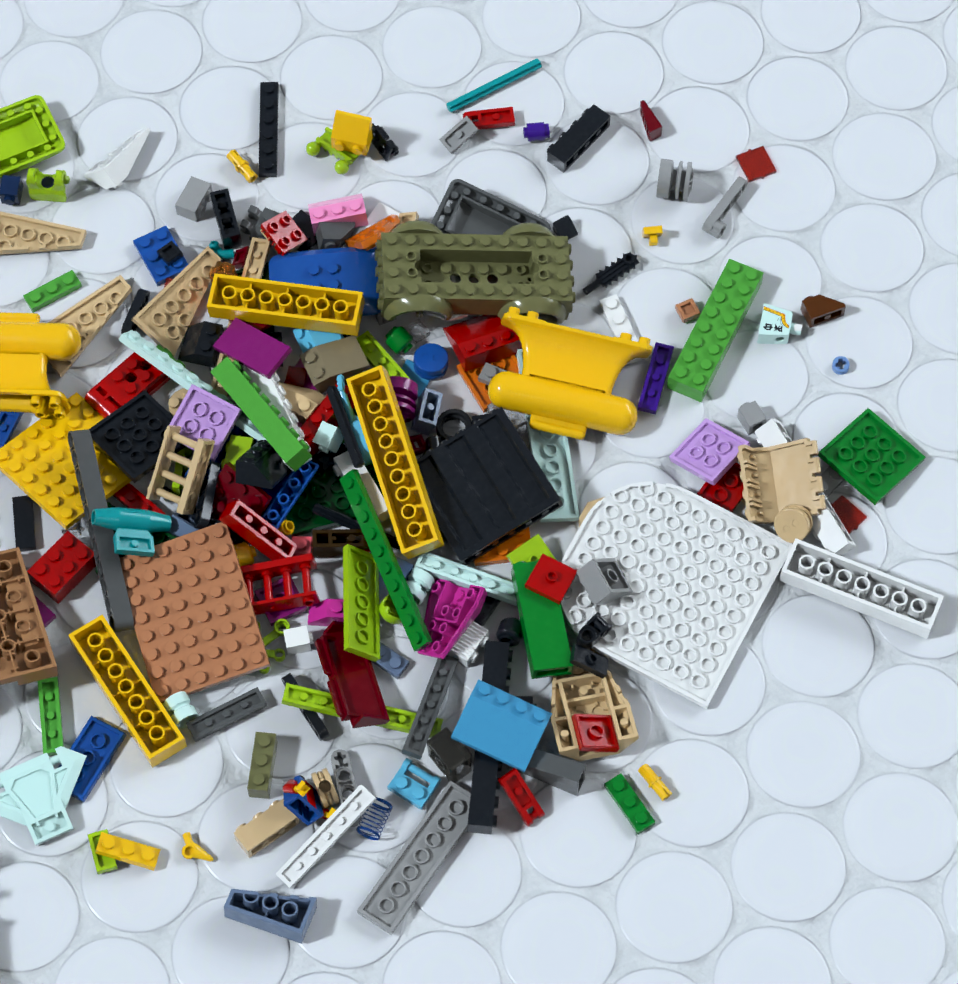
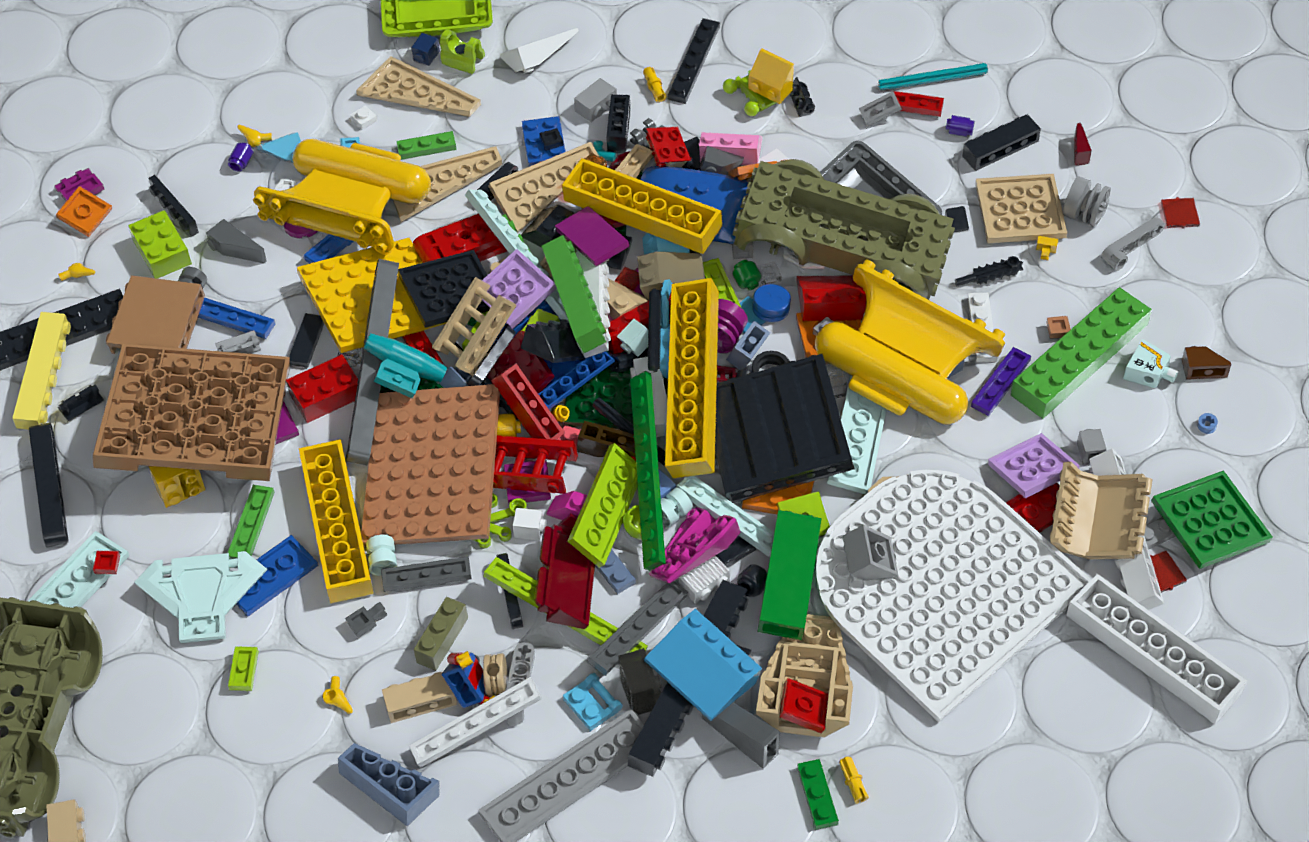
camera: 20 degrees right, 10 degrees down
(127, 851) = (267, 675): yellow plate -> none
(189, 774) = (364, 620): none -> dark grey plate
(370, 830) = (544, 712): blue piece -> none
(521, 796) = (699, 747): red plate -> none
(551, 579) = (813, 536): red plate -> none
(589, 661) = (824, 630): black plate -> none
(595, 629) = (843, 601): black piece -> none
(617, 201) = (1020, 208): none -> tan plate
(793, 522) = (1100, 558): tan head -> none

